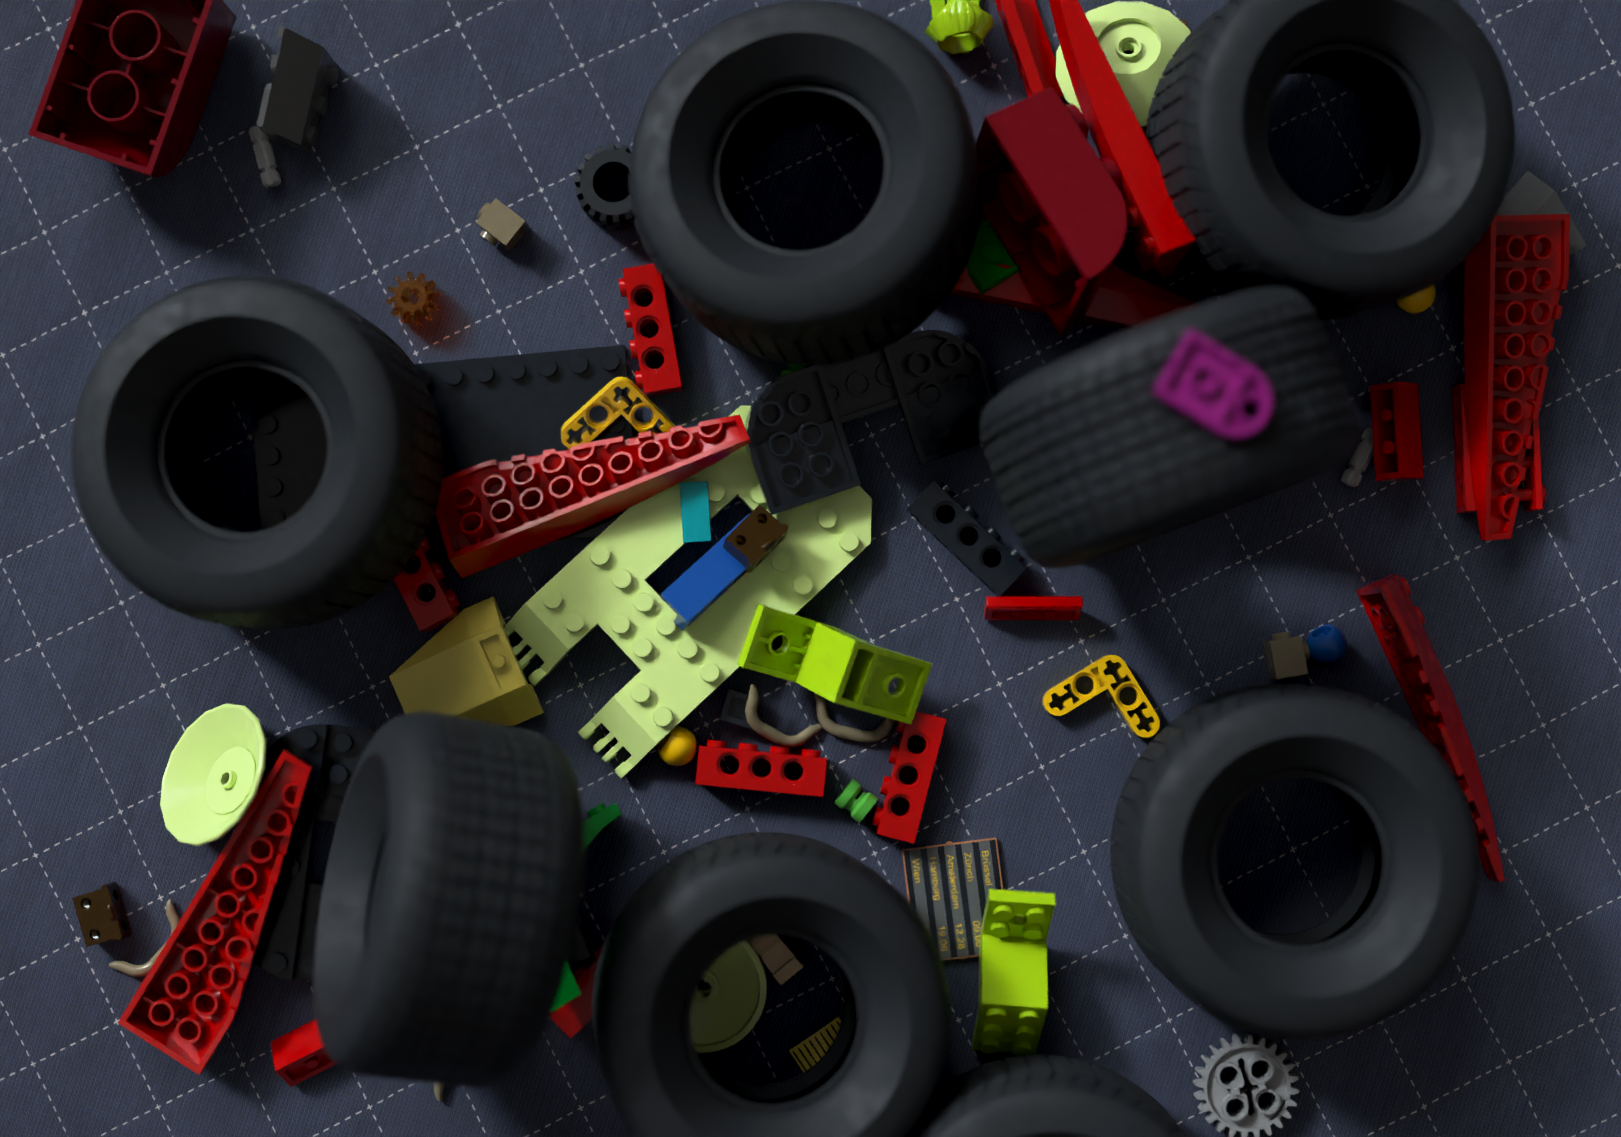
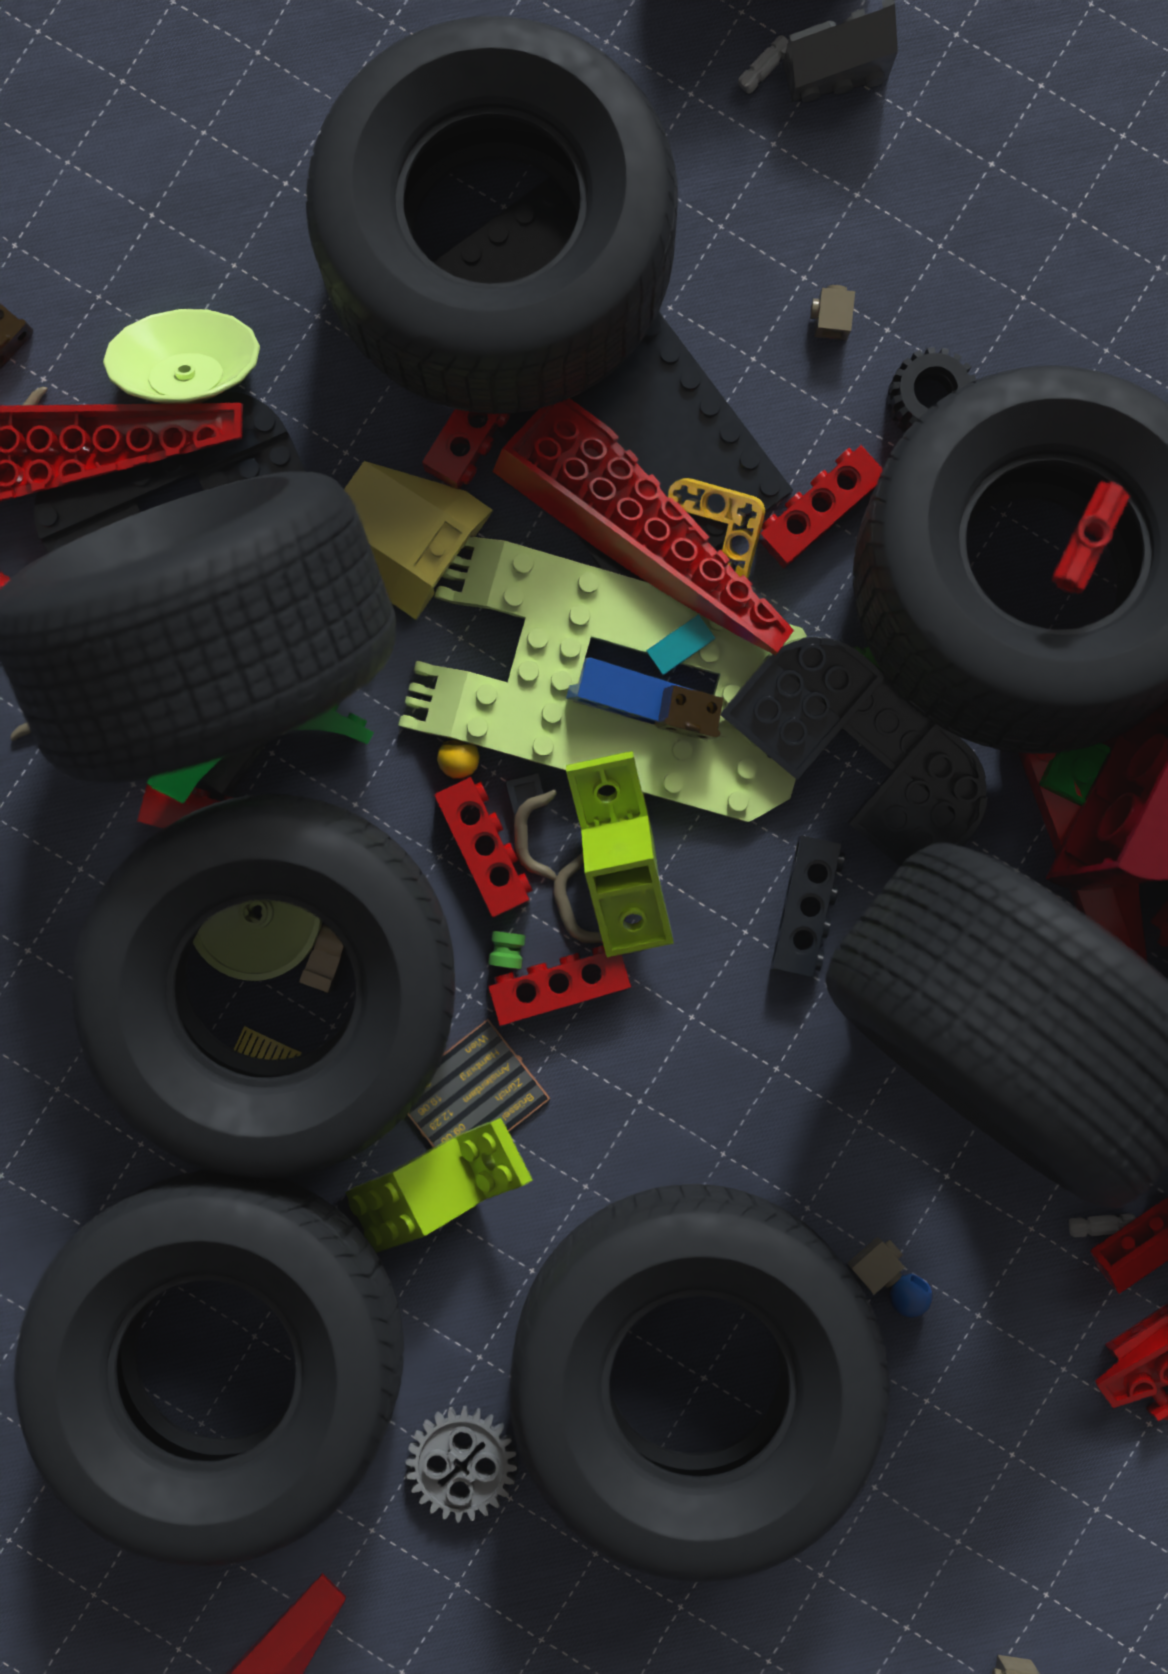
camera: 50 degrees right, 0 degrees up
(402, 303) = (706, 269): clear orange gear -> none
(805, 126) = (1099, 521): none -> red piece
(1033, 607) = (780, 1005): red tile -> none
(1103, 682) = (751, 1111): yellow beam -> none
(1211, 386) = (1095, 1031): magenta tile -> none
(1430, 700) = (918, 1423): red wedge -> none

